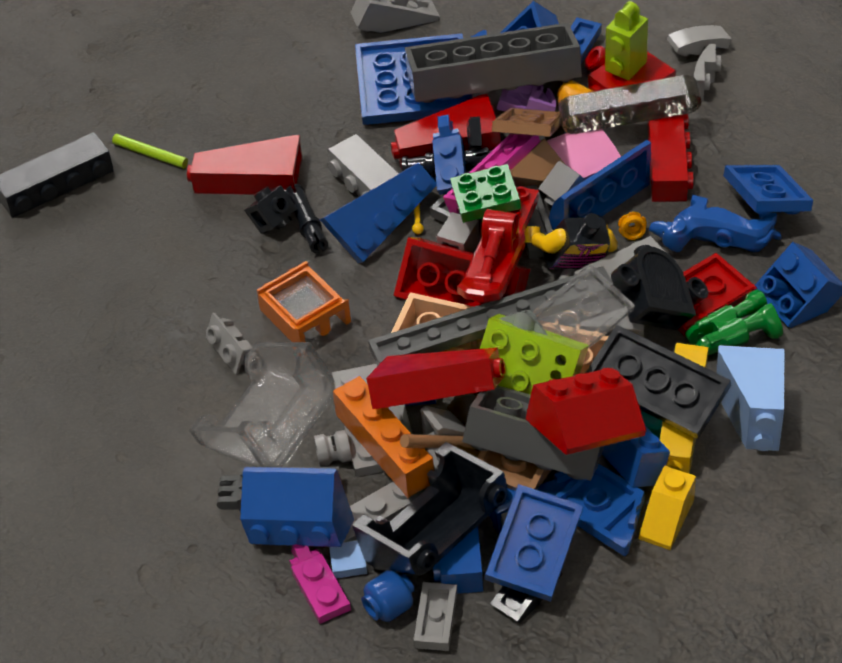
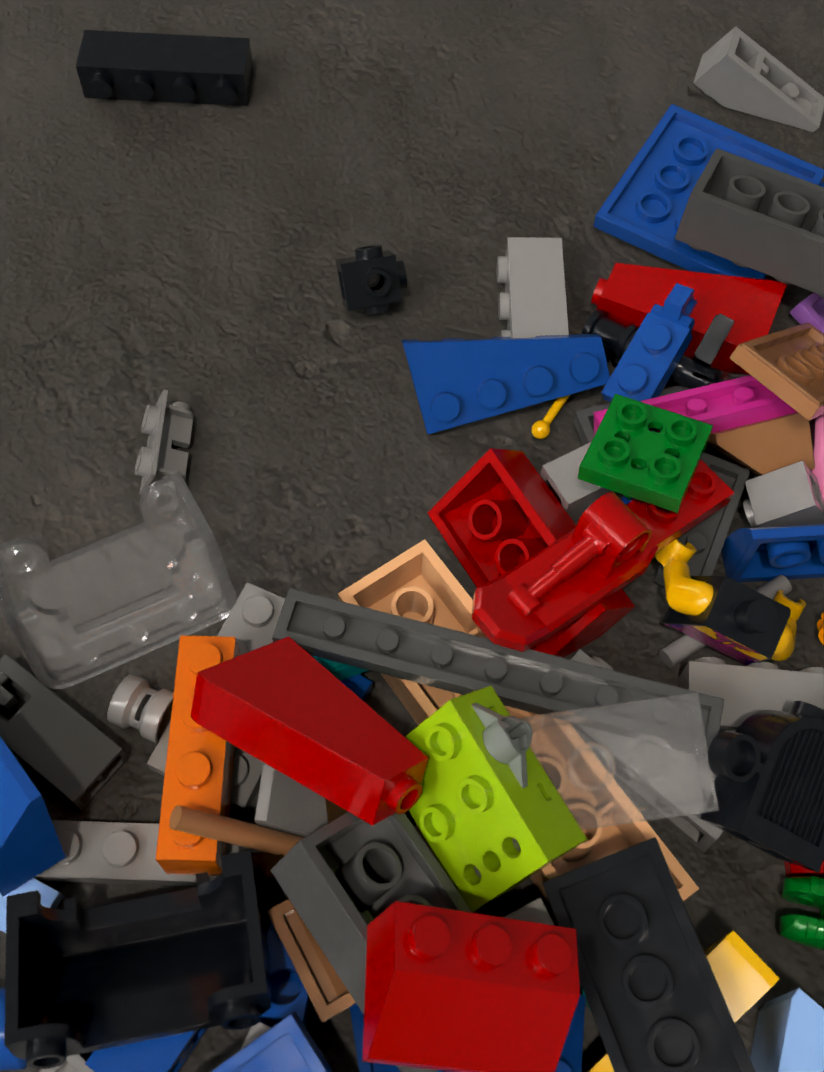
camera: 30 degrees right, 15 degrees up
(150, 151) = (308, 104): lime bar -> none
(247, 167) = (398, 203): slope -> none
(301, 302) = (293, 448): orange window -> none
(309, 225) = (407, 321): black pin -> none

